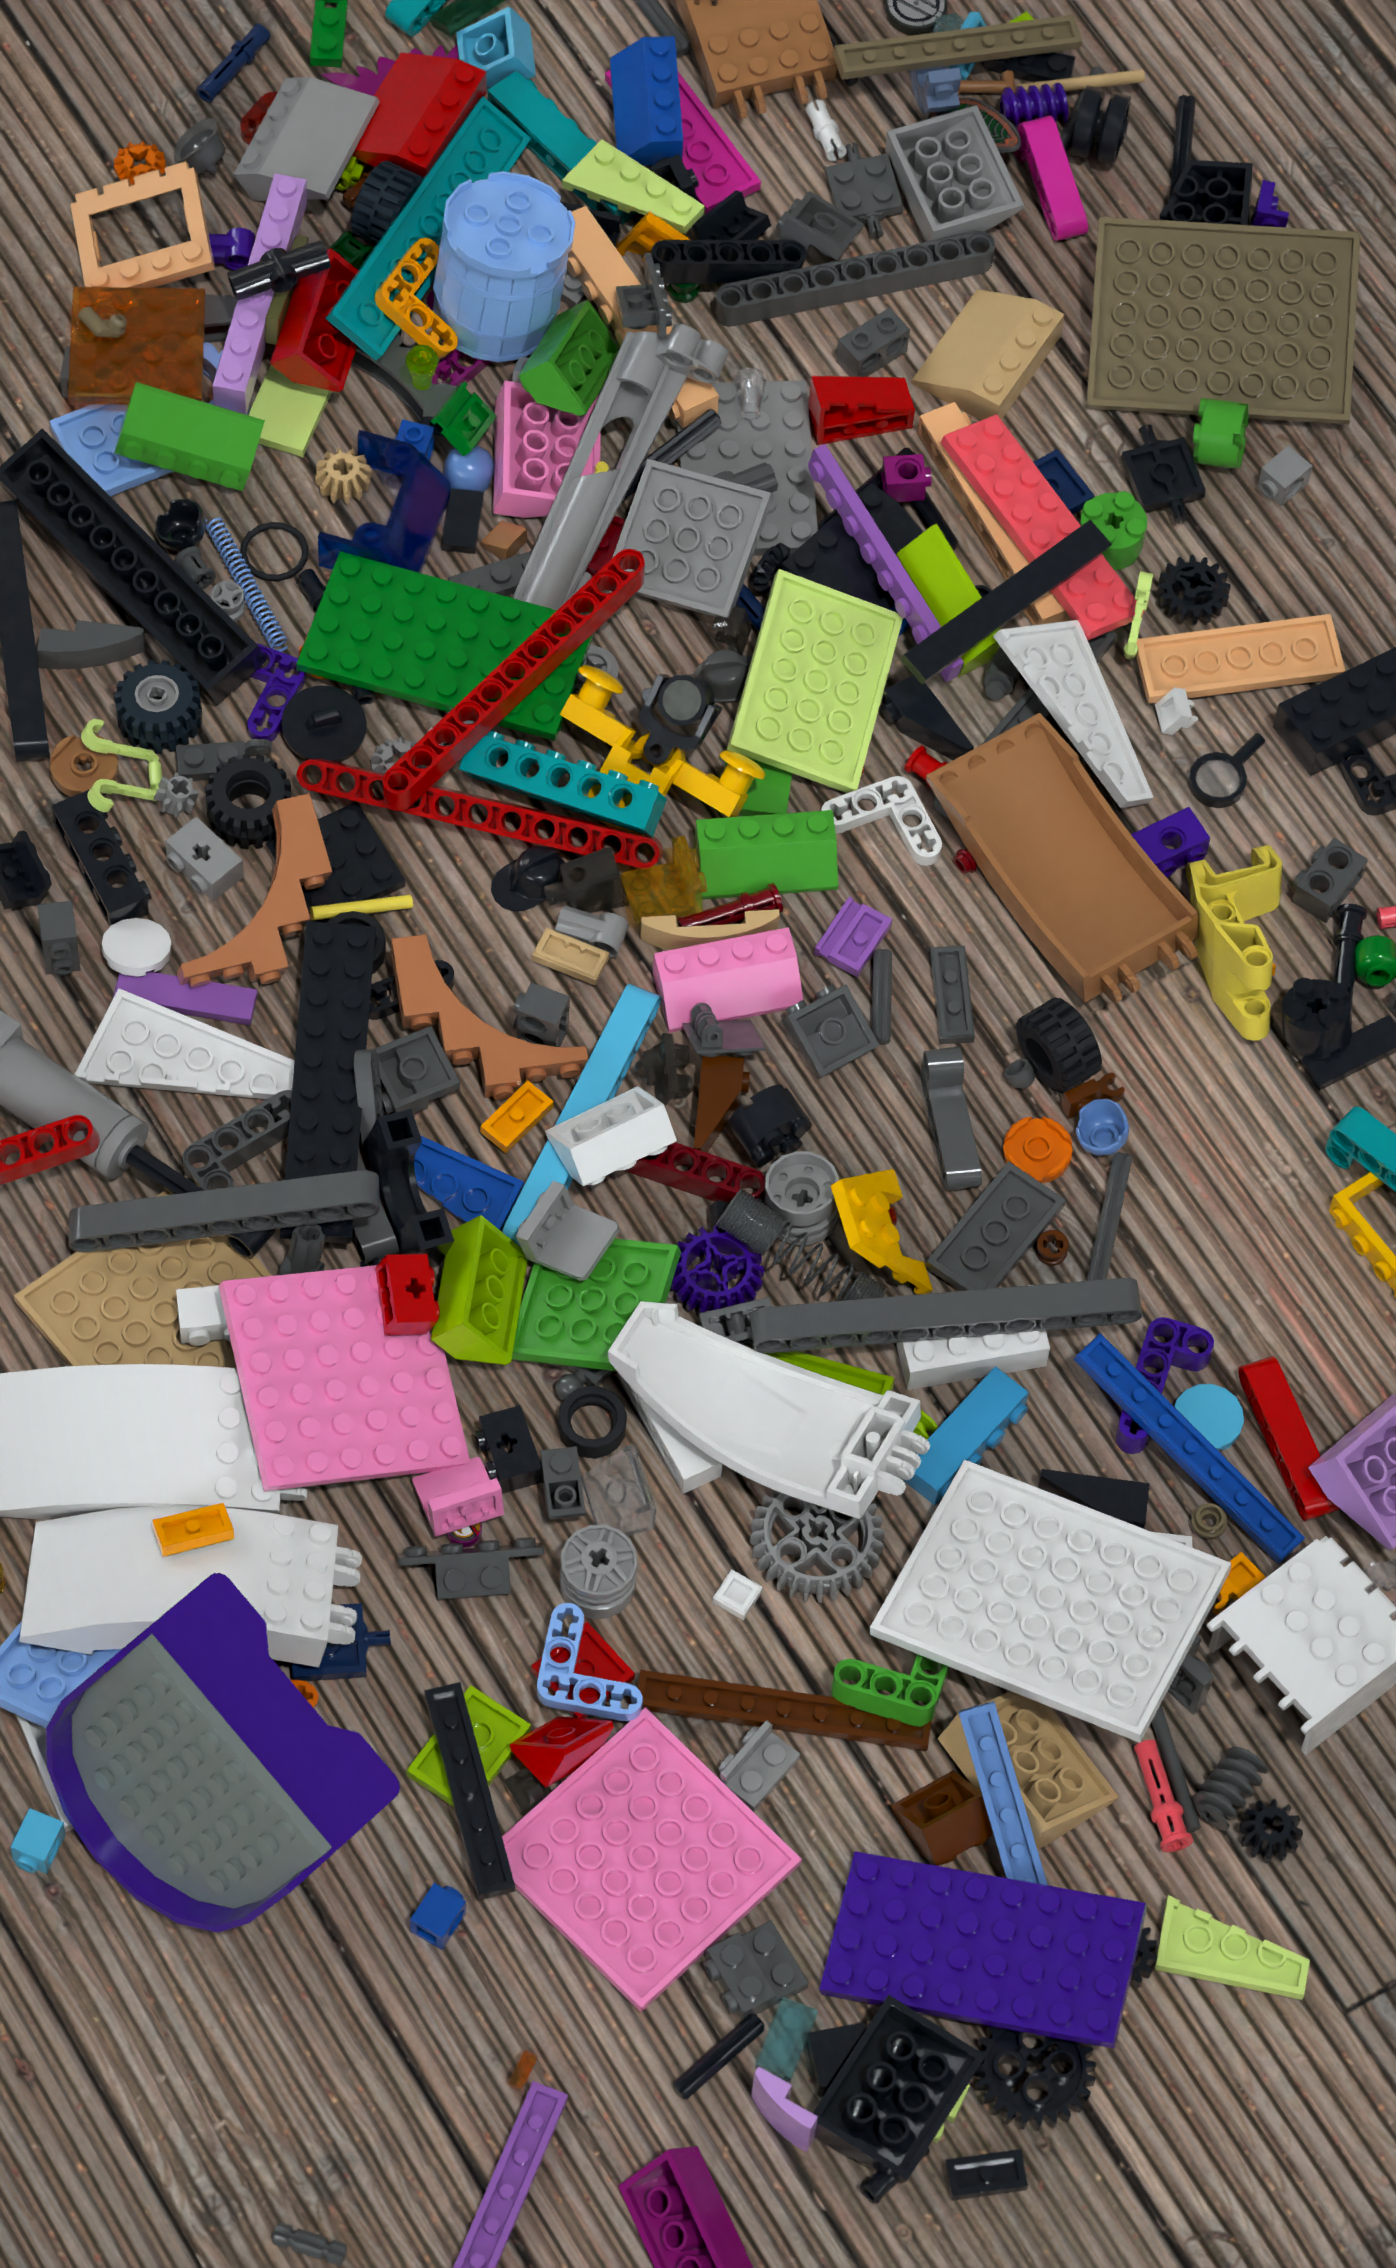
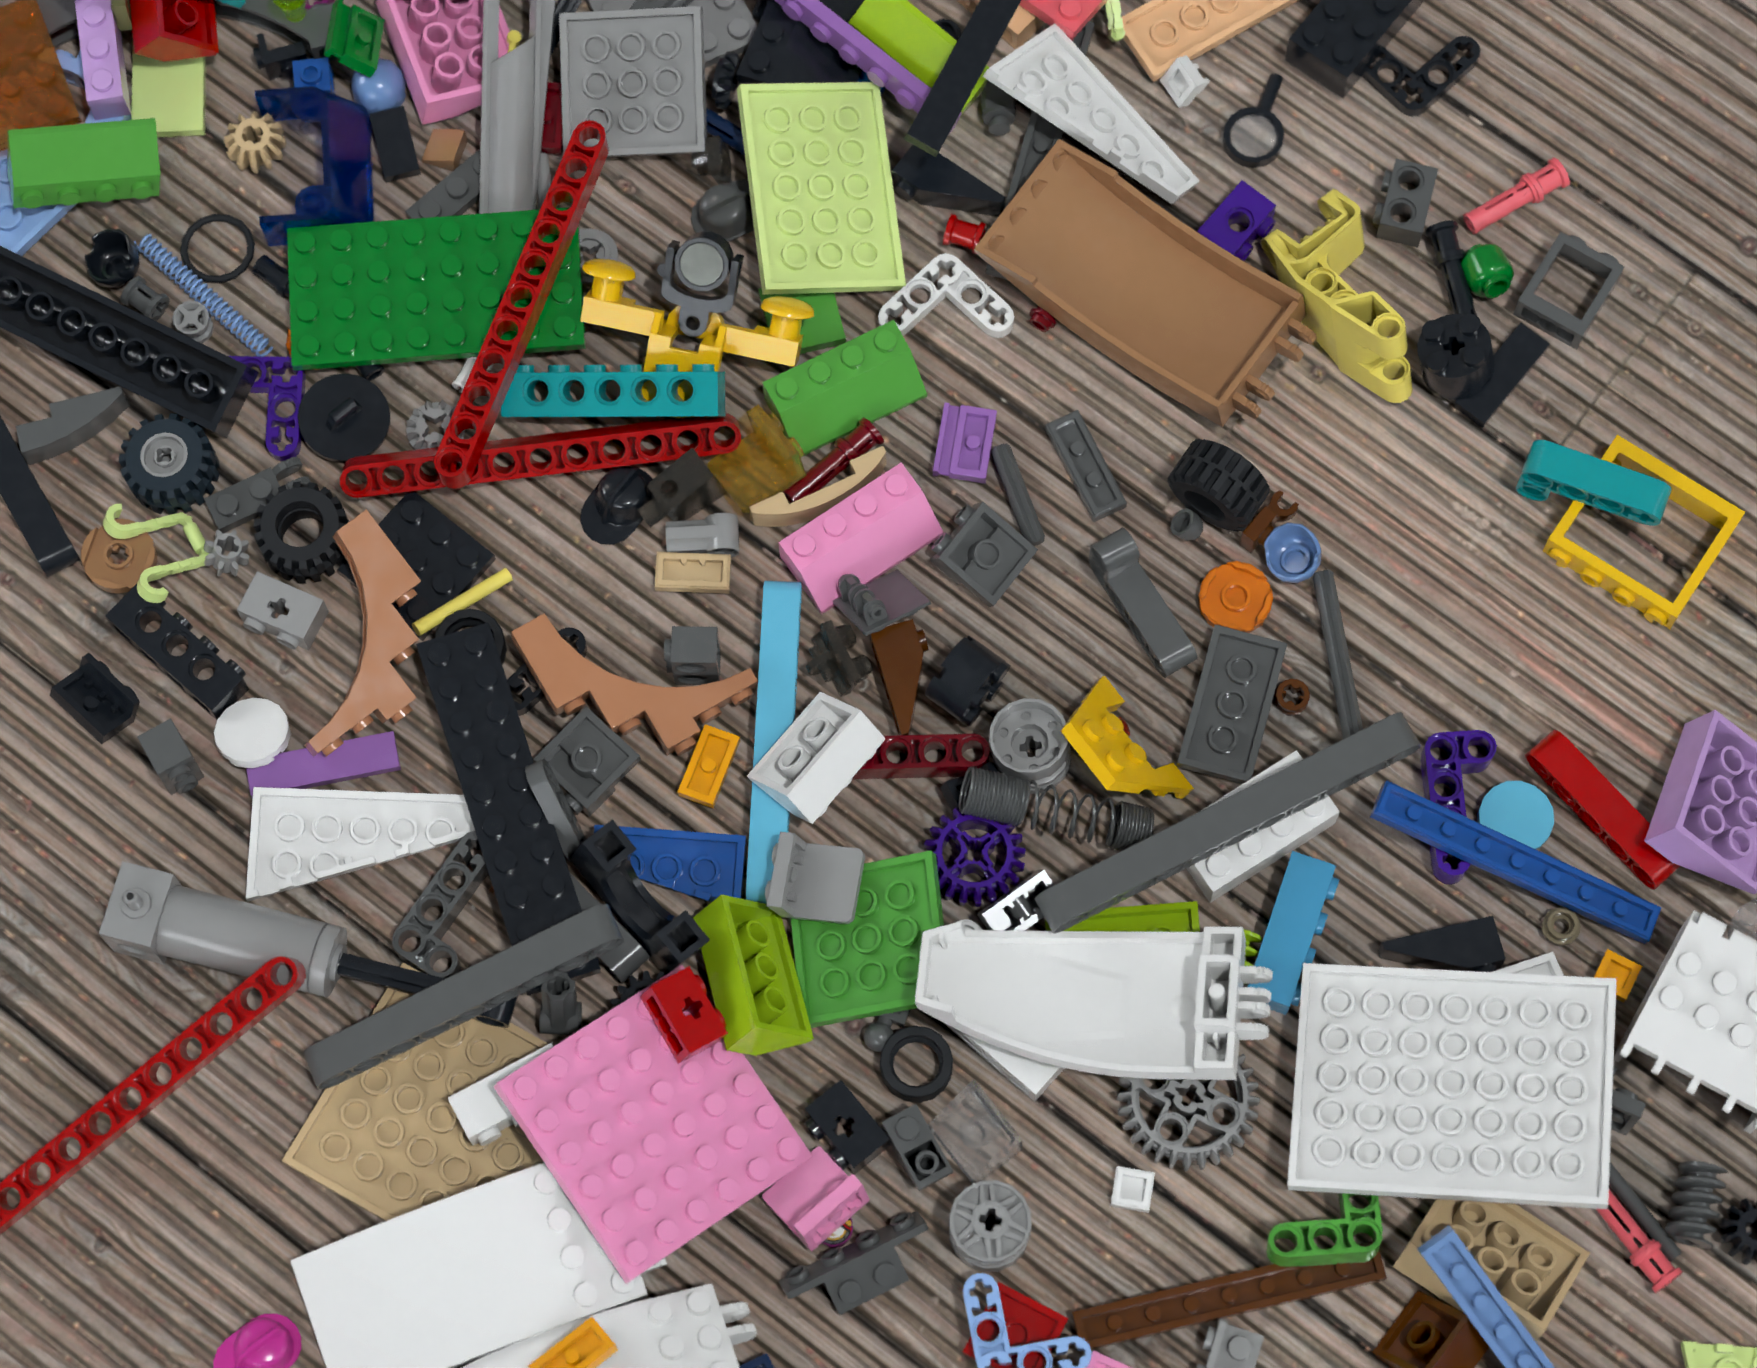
camera: 15 degrees left, 10 degrees up
(390, 416) = (278, 60): none -> black bracket

